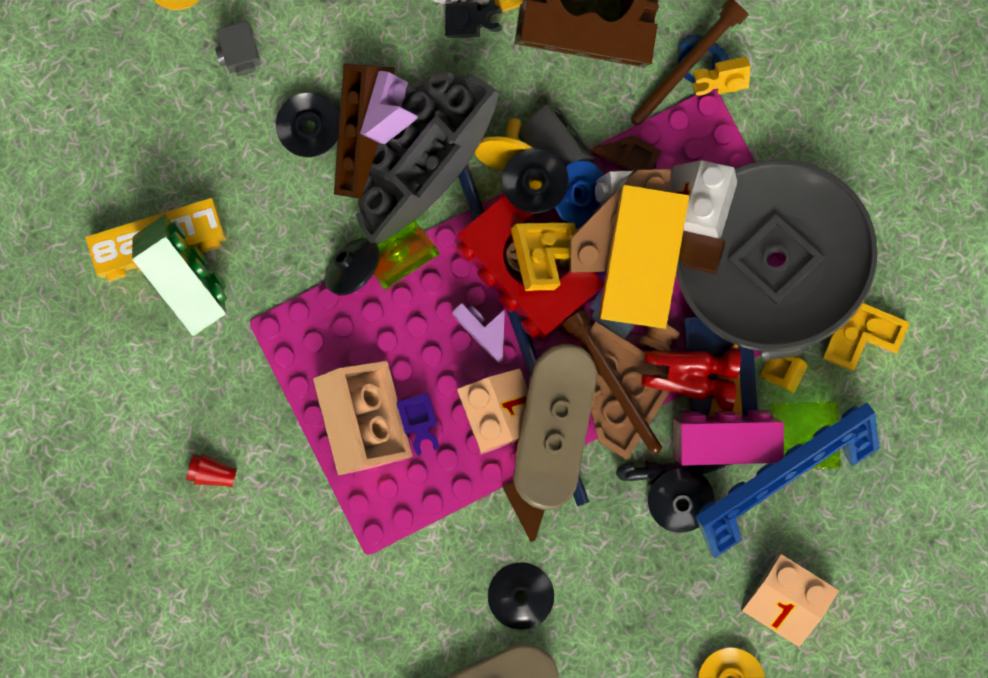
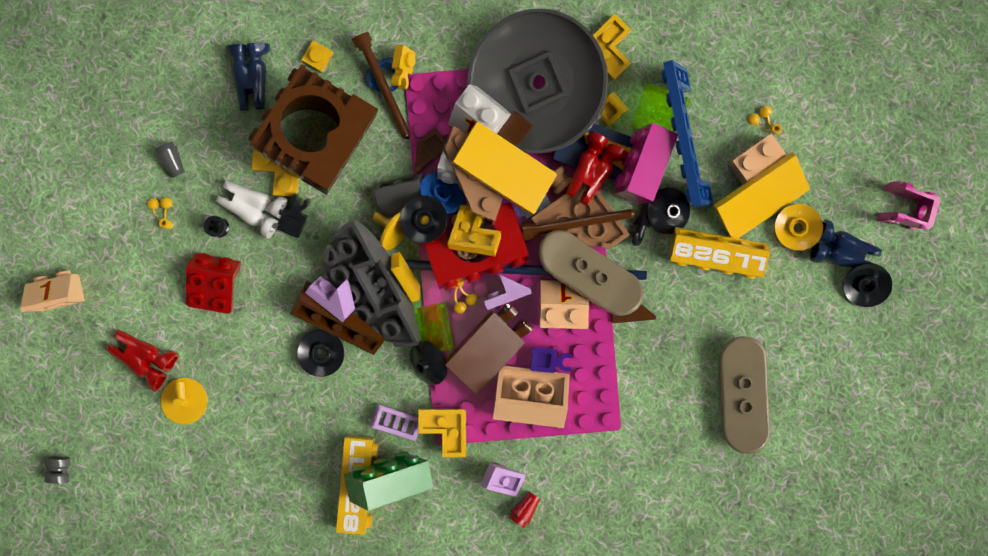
camera: 70 degrees left, 5 degrees up
(237, 49) = (250, 379): dark grey brick -> none
(238, 425) = (502, 479): none -> lavender slope
(253, 230) = (374, 423): none -> lavender slope
(284, 325) = (449, 423): none -> yellow plate
(401, 334) = (487, 348): none -> reddish brown tile
(451, 191) = (405, 277): none -> yellow tile
(456, 288) = (471, 300): none -> yellow piece
(521, 577) = (675, 336): black dish -> none
(652, 588) = (719, 252): none -> yellow brick
(751, 615) = (762, 196): none -> yellow tile
(865, 575) = (764, 112): none -> yellow piece

